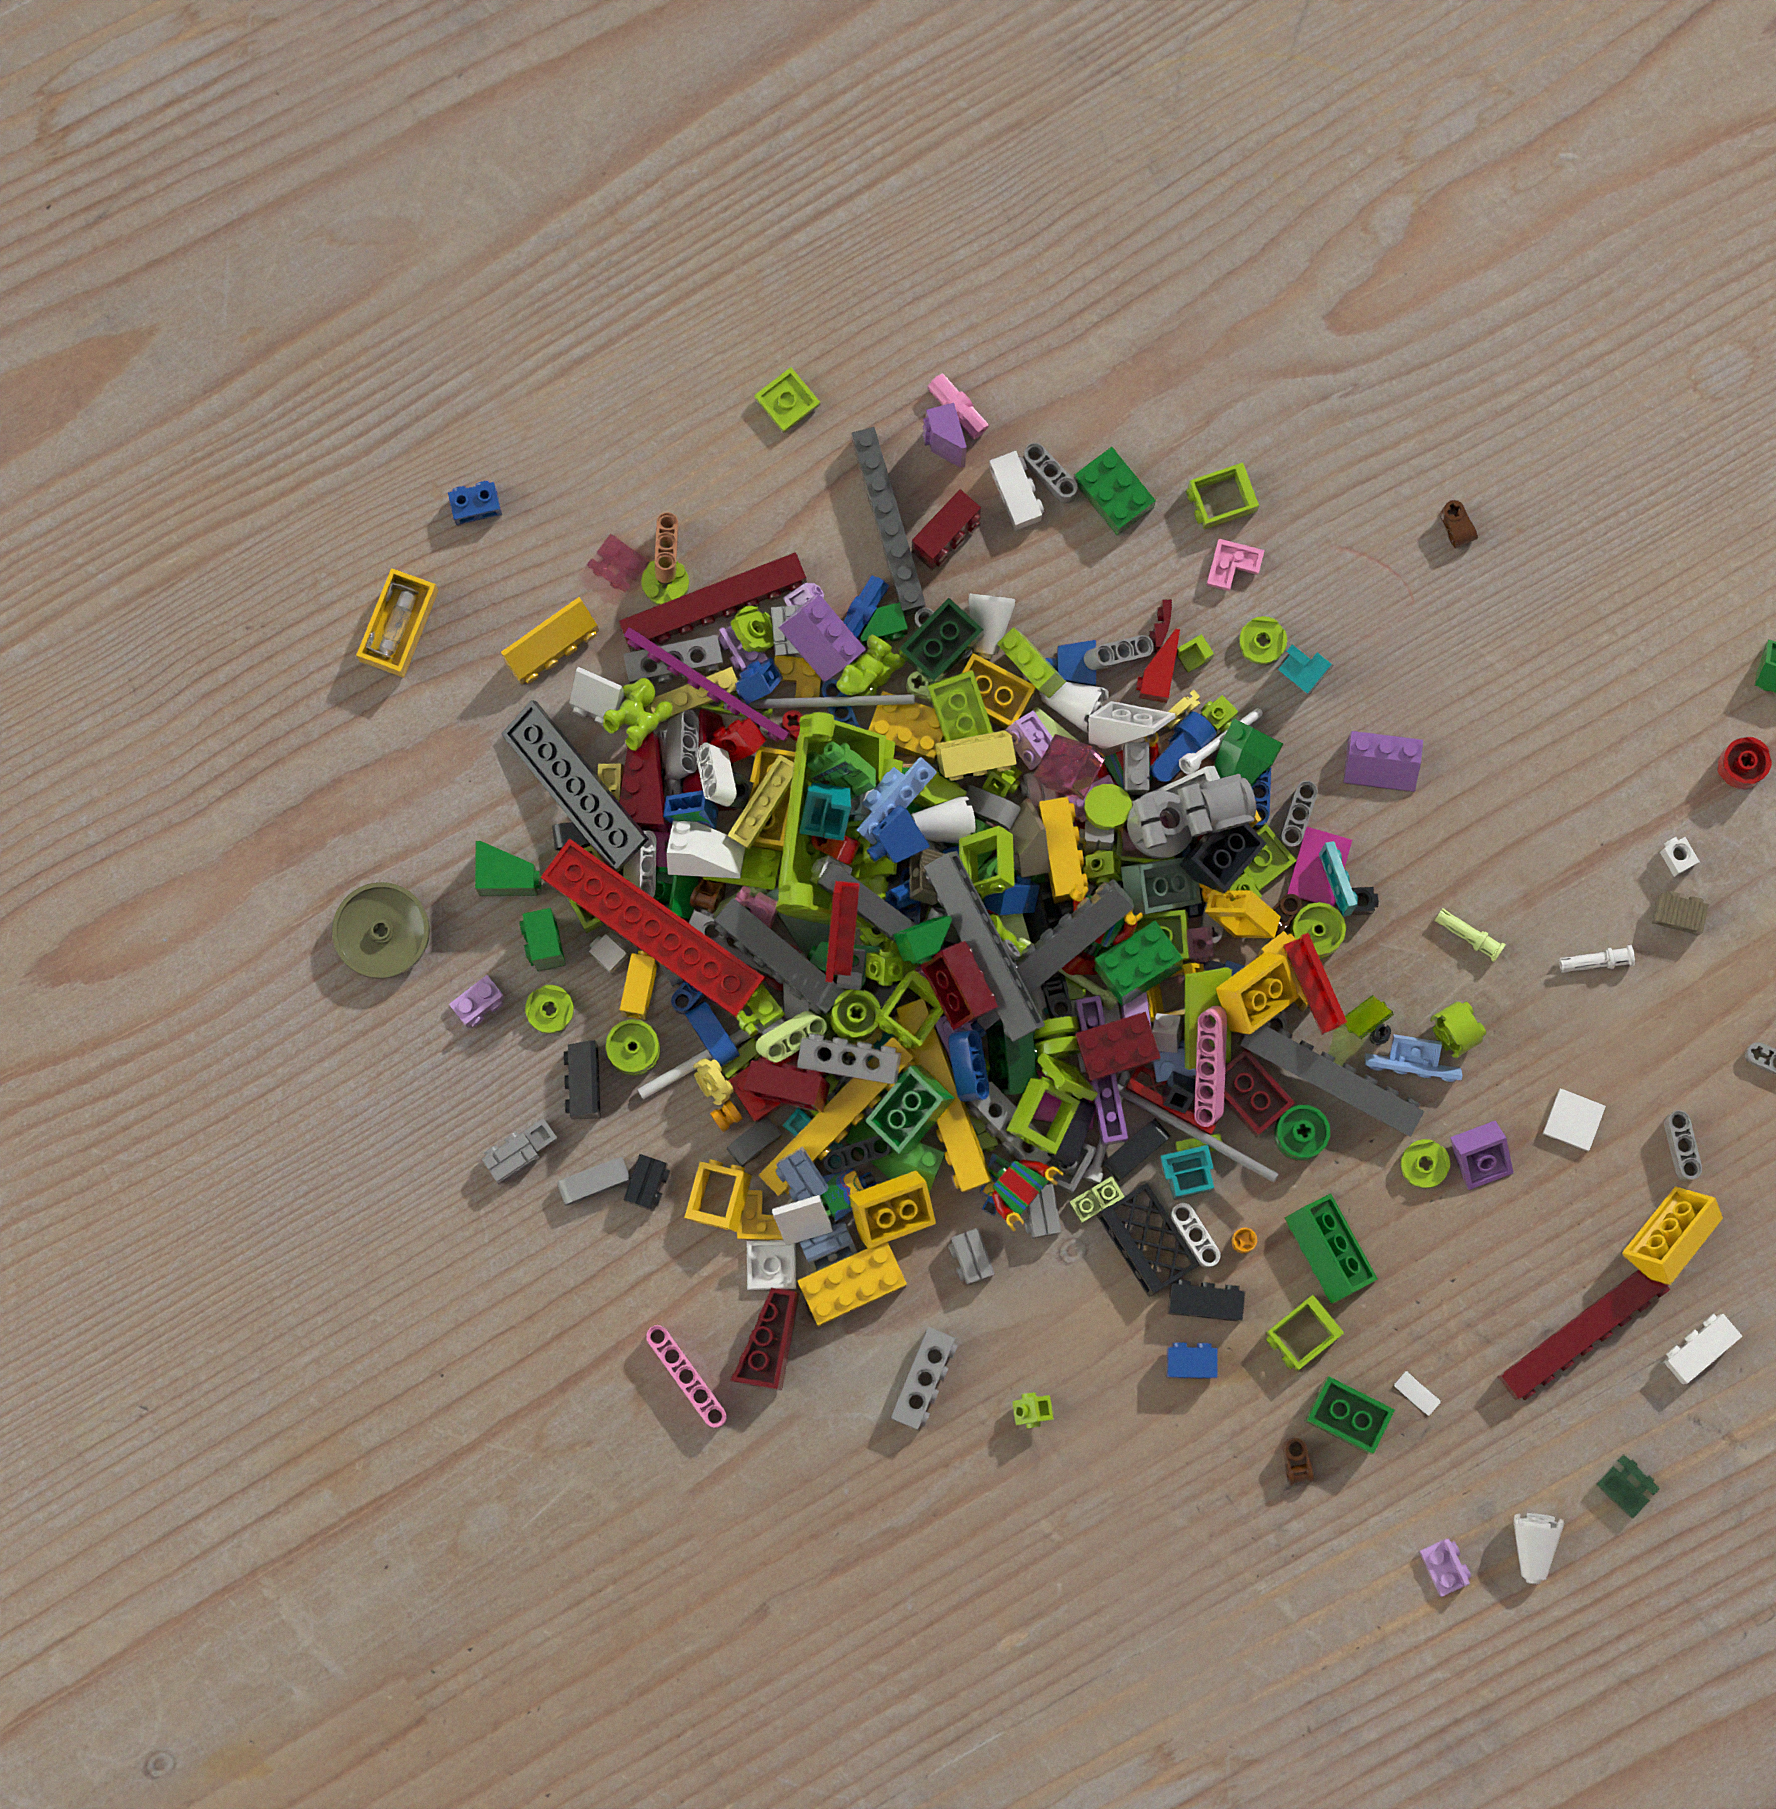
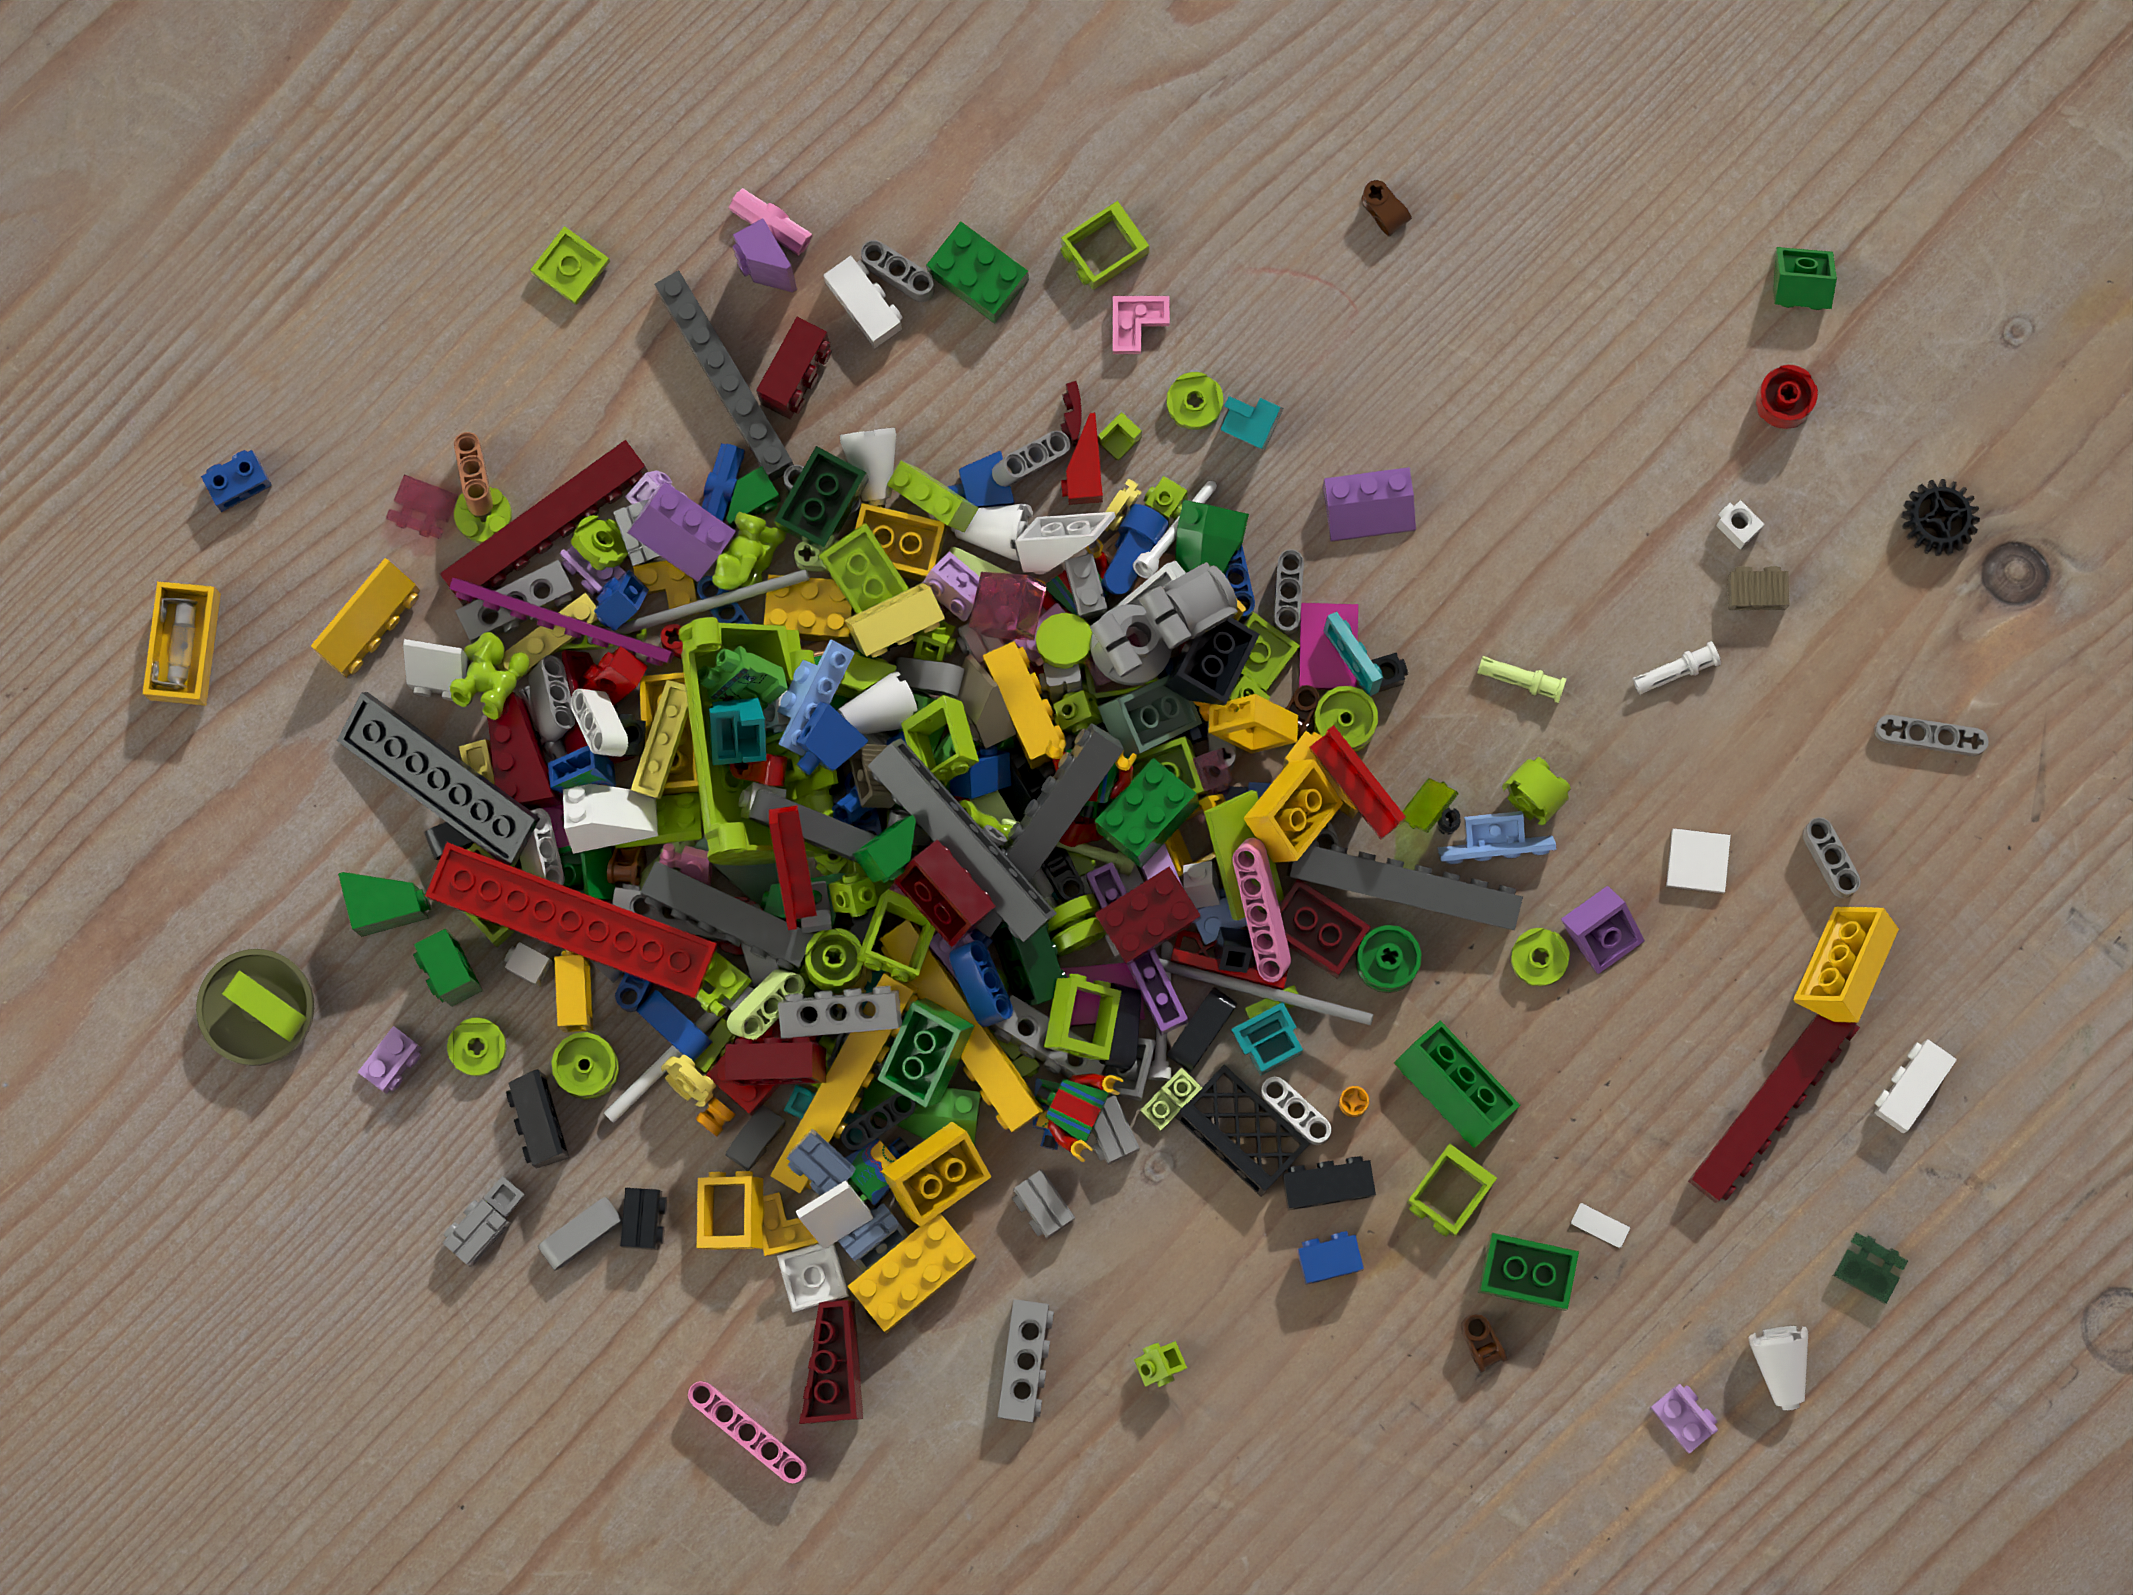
camera: 10 degrees left, 0 degrees up
(389, 931) = (264, 1006): none -> lime beam
(1067, 1077) = (1098, 967): lime plate -> none

